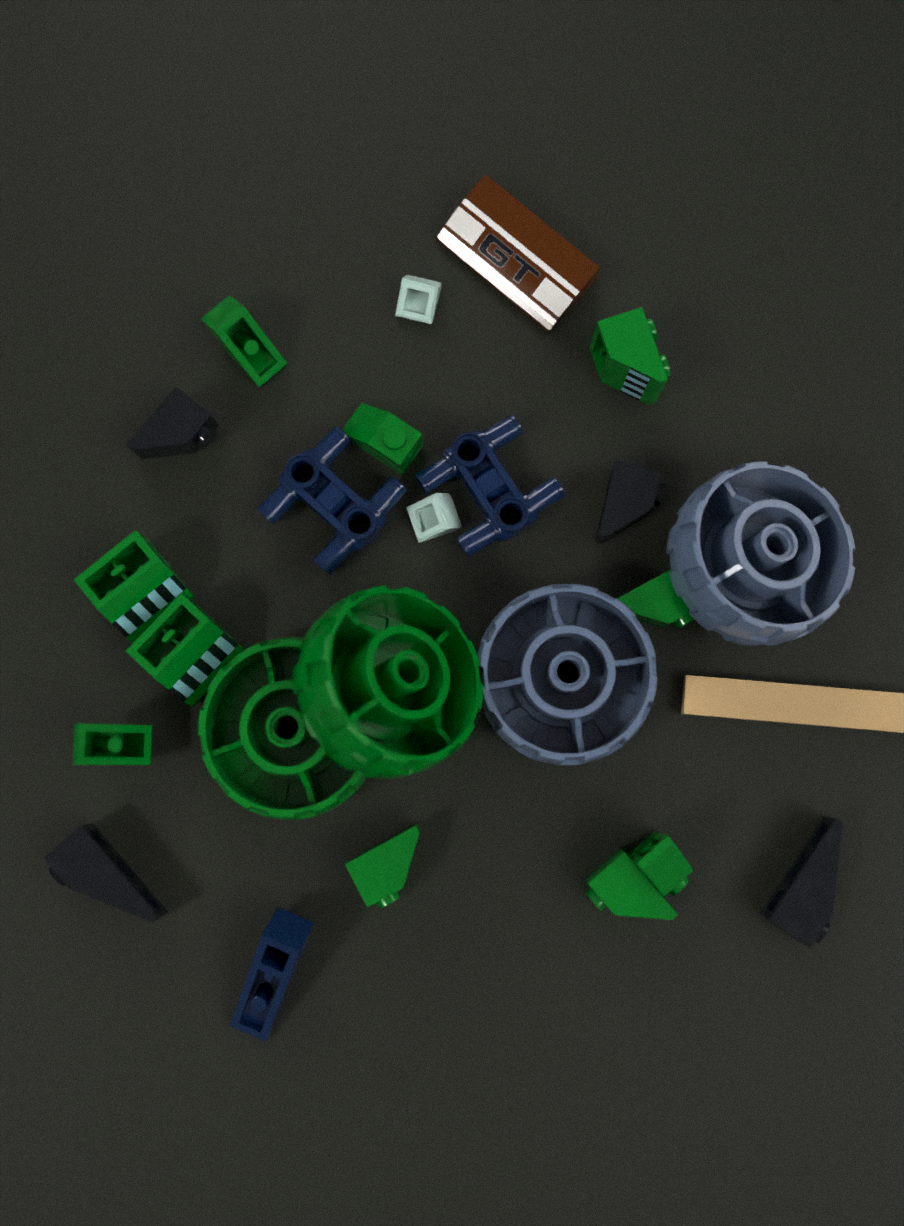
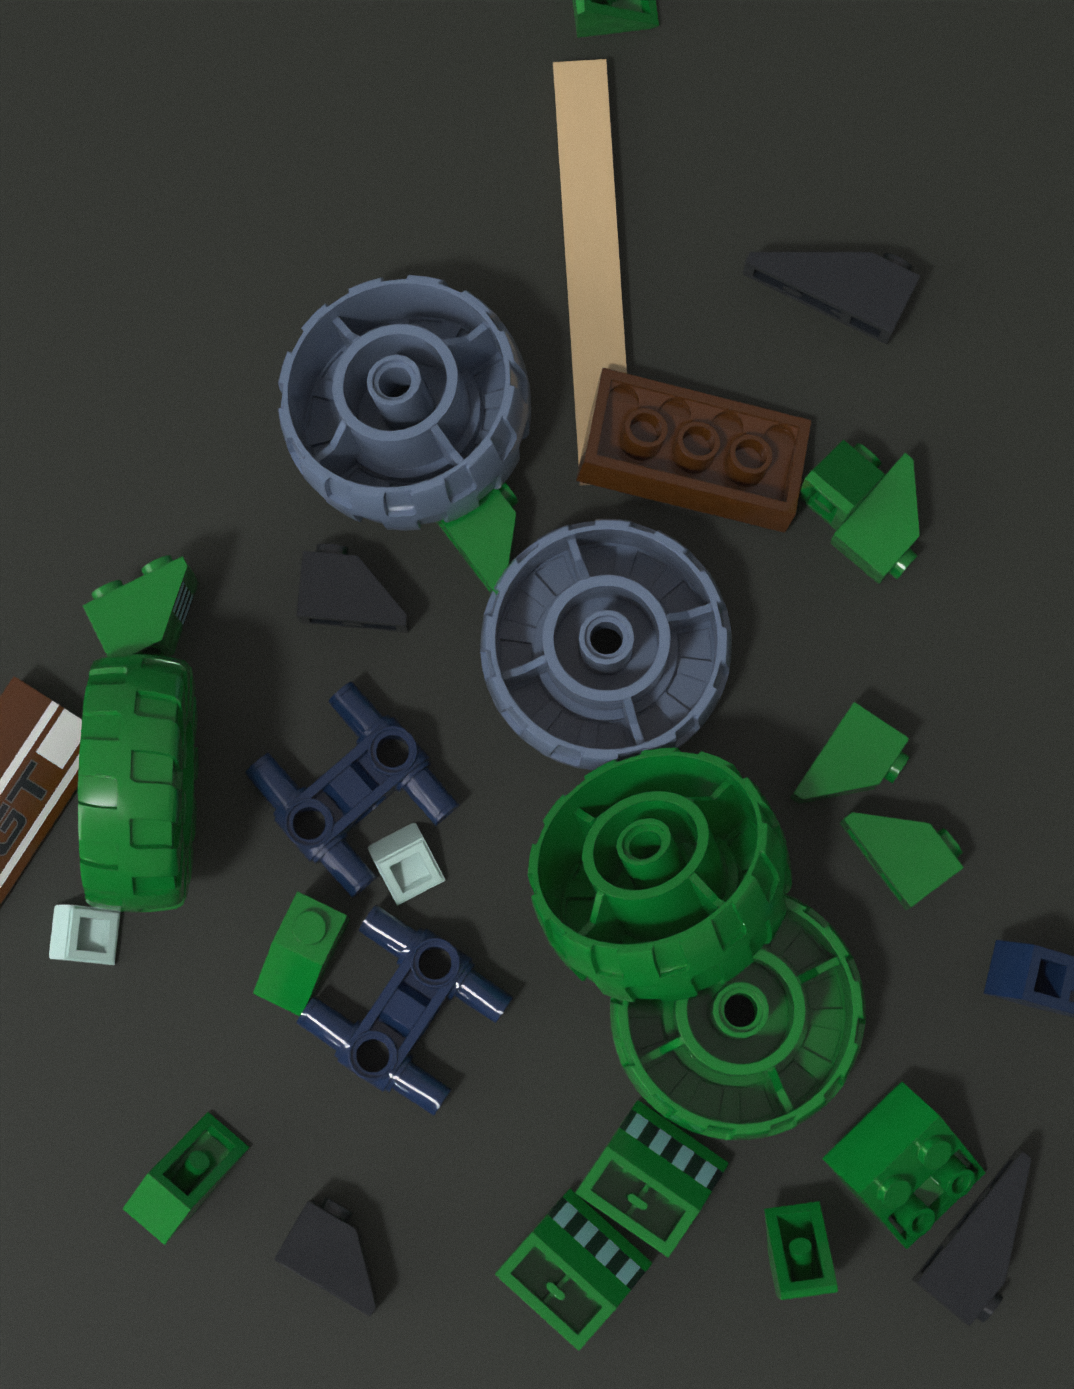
camera: 100 degrees left, 0 degrees up
(167, 829) = (904, 1165): none -> green slope
(459, 841) = (854, 758): none -> green slope
(511, 325) = (137, 783): none -> green wheel
(698, 760) = (694, 450): none -> reddish brown slope

